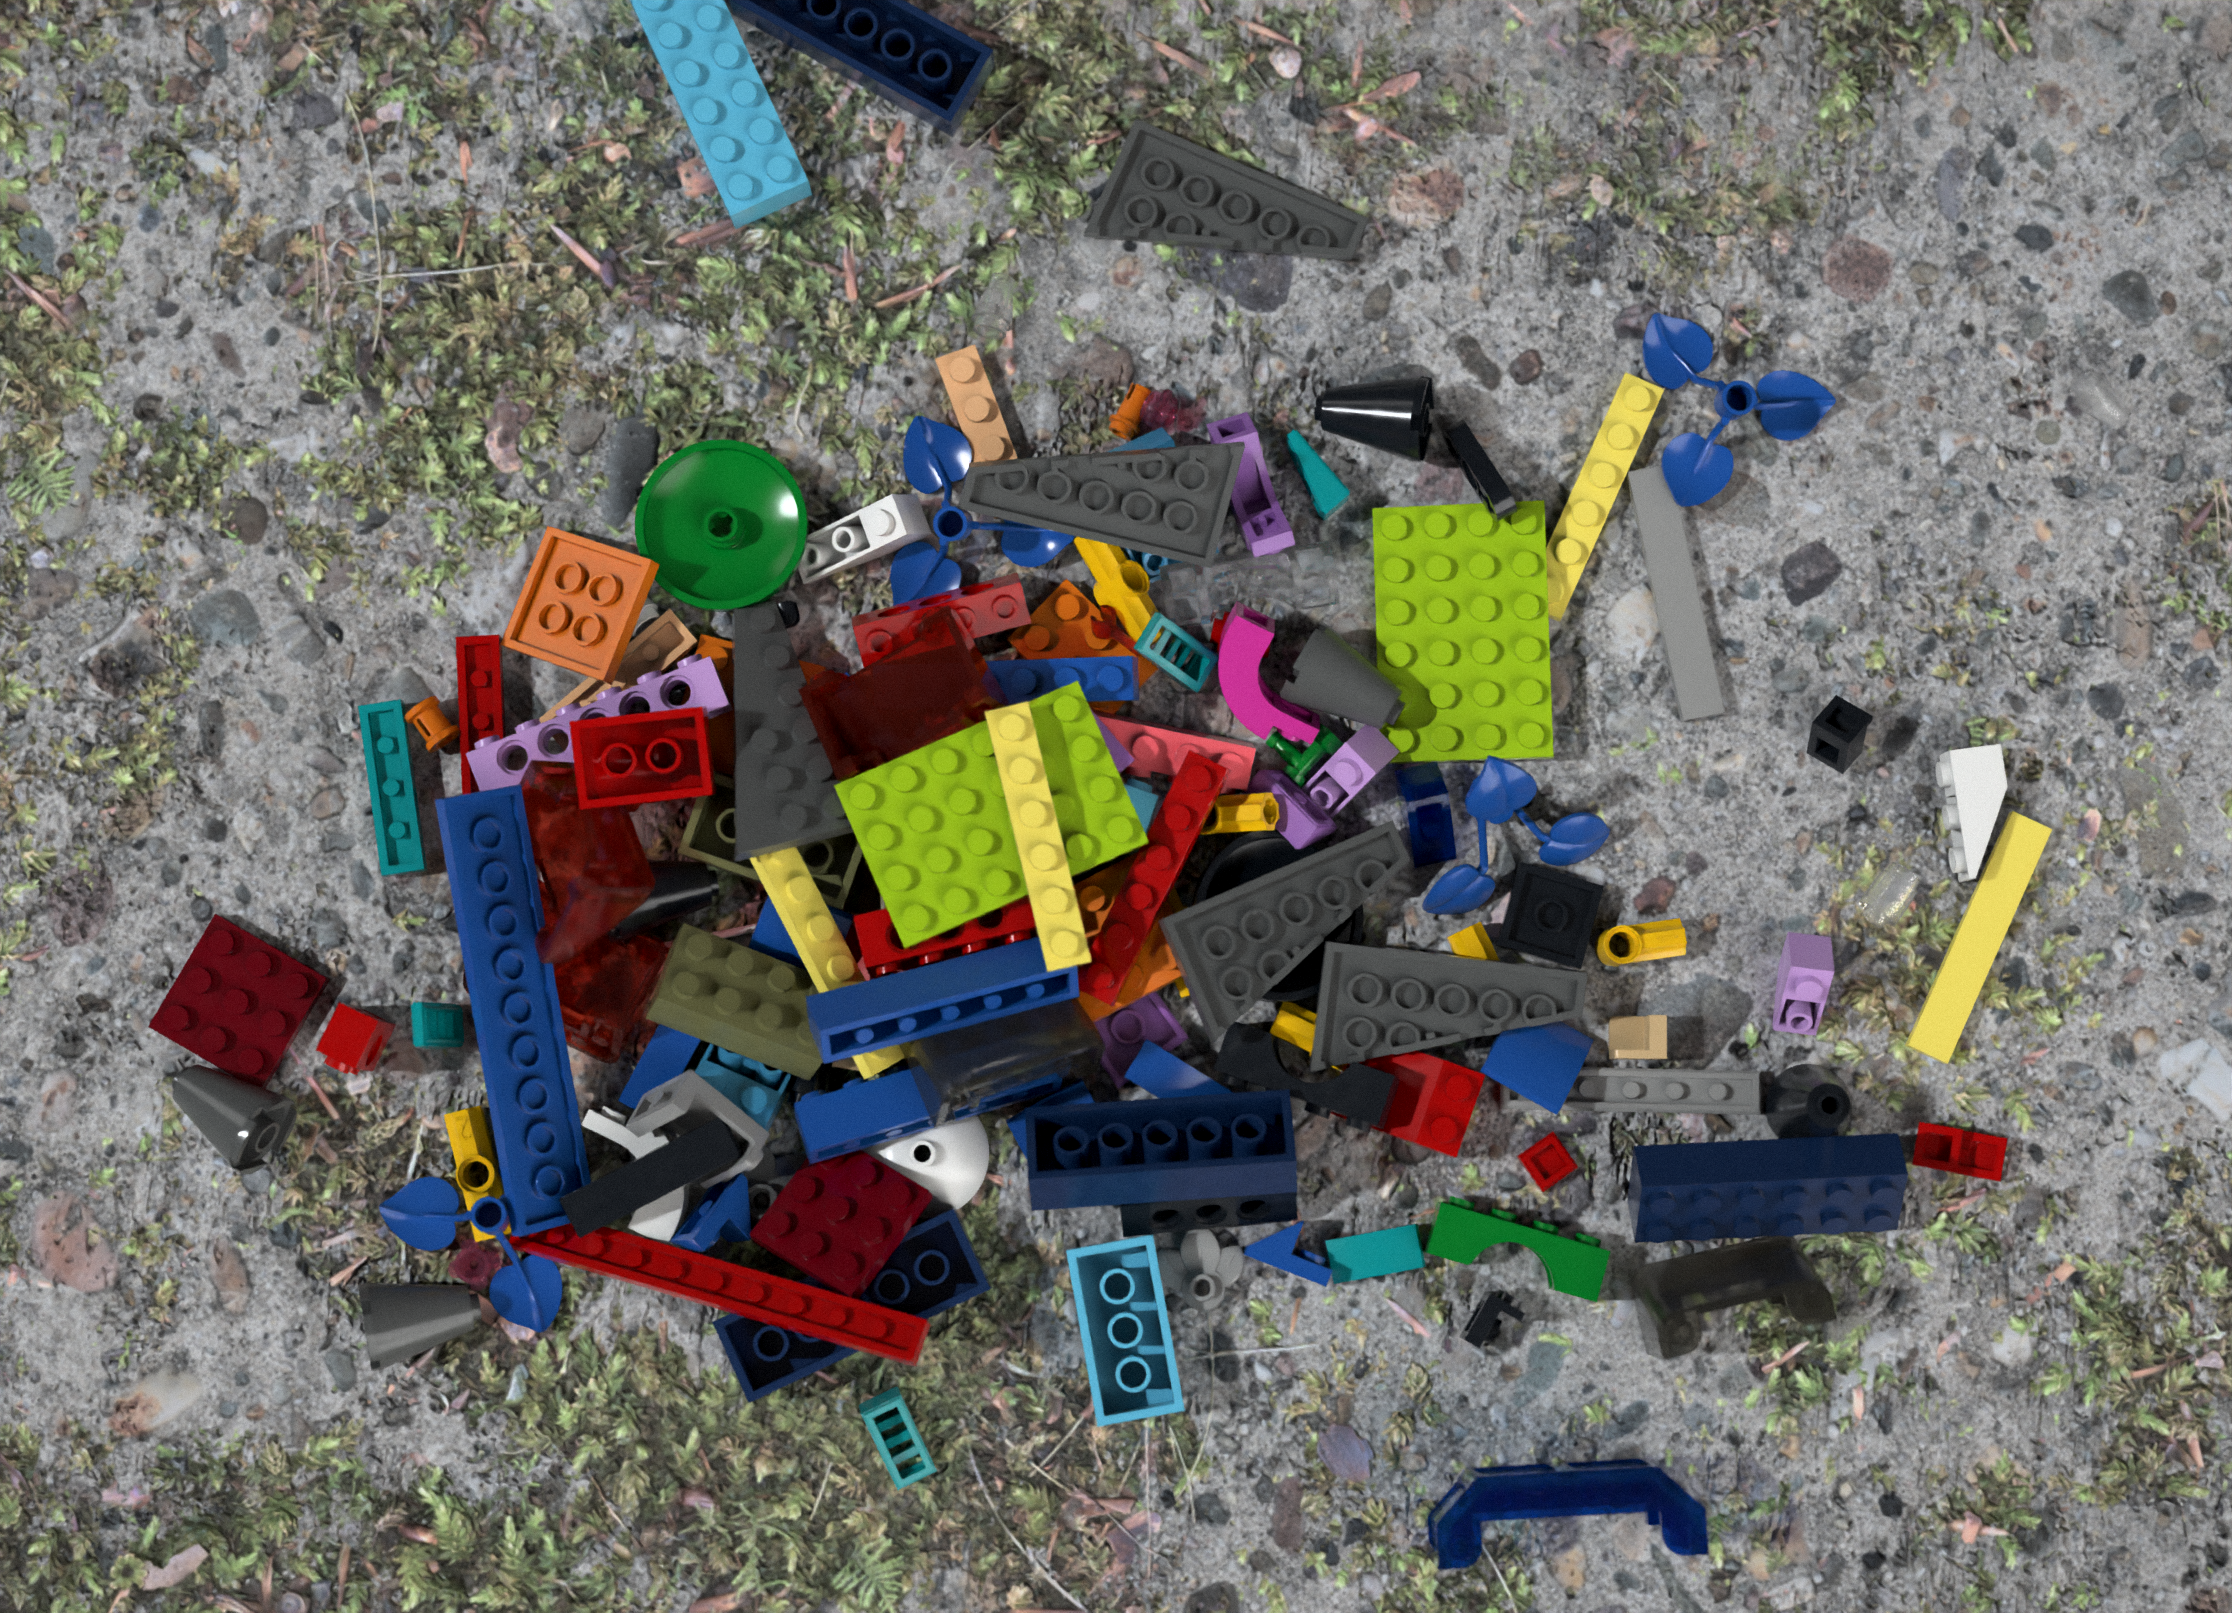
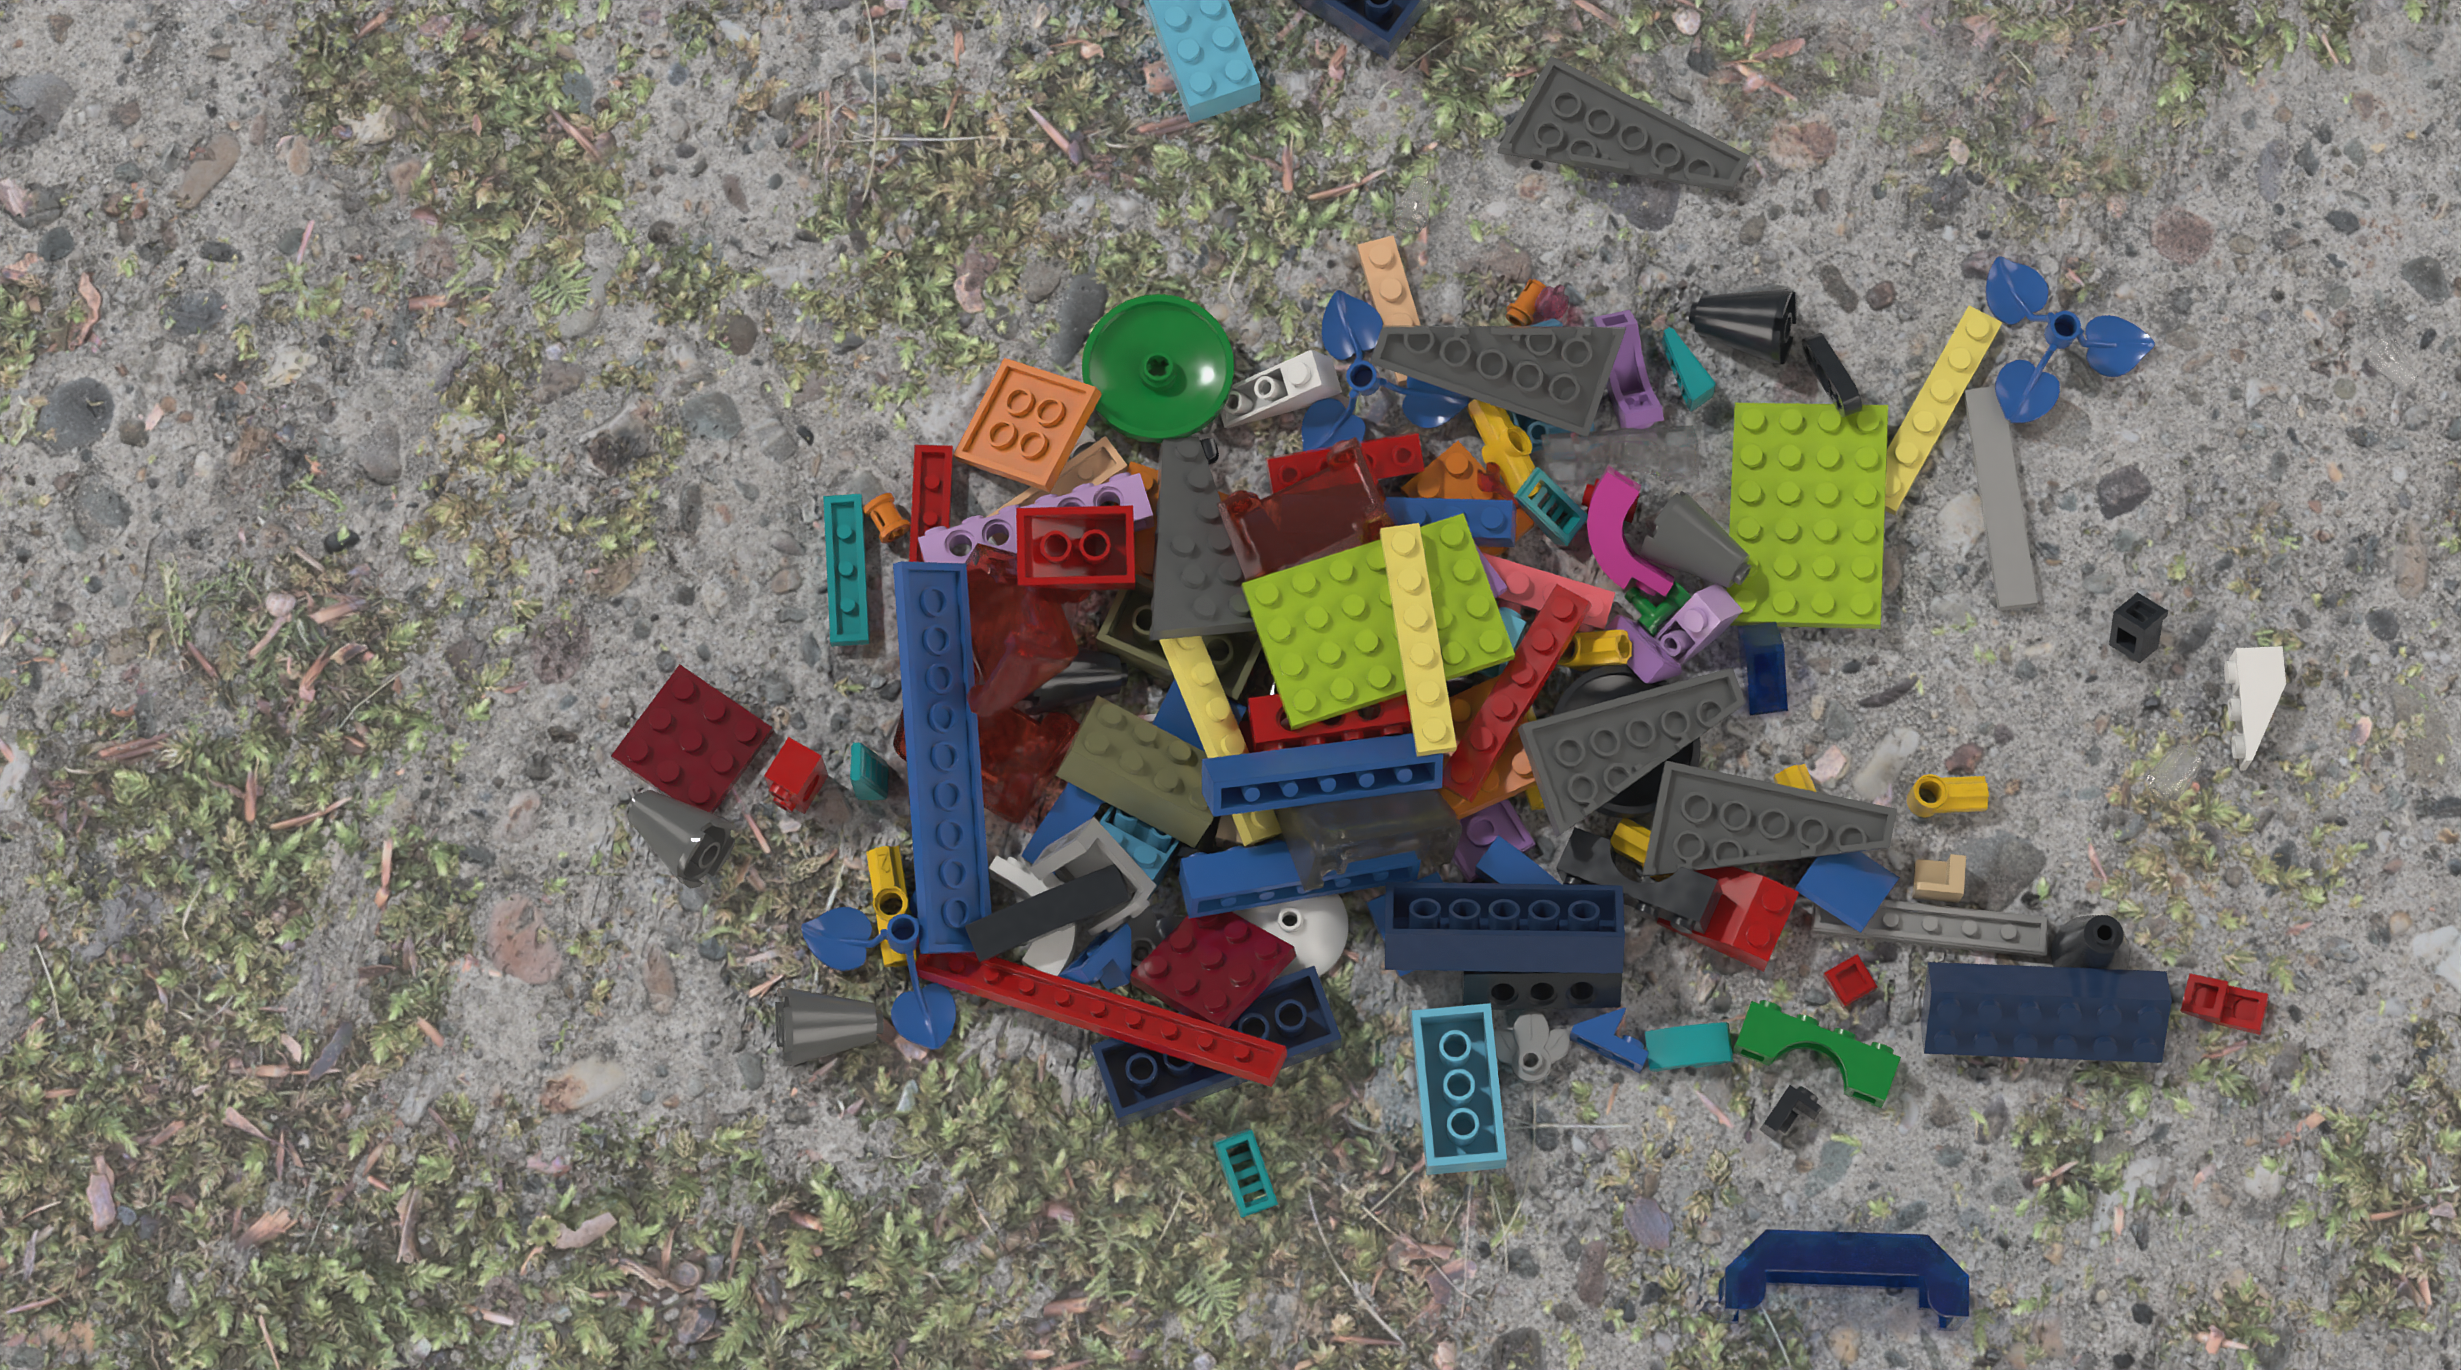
camera: 10 degrees right, 10 degrees down
(461, 1266) = (876, 976): clear pink plate -> none
(1494, 797) = (1823, 646): blue plant -> none
(1549, 915) = (1867, 763): black plate -> none
(1679, 1288) = (1952, 1102): clear smoke windscreen -> none
(1802, 983) = (2091, 843): lavender slope -> none
(1978, 937) = (2253, 818): light yellow tile -> none

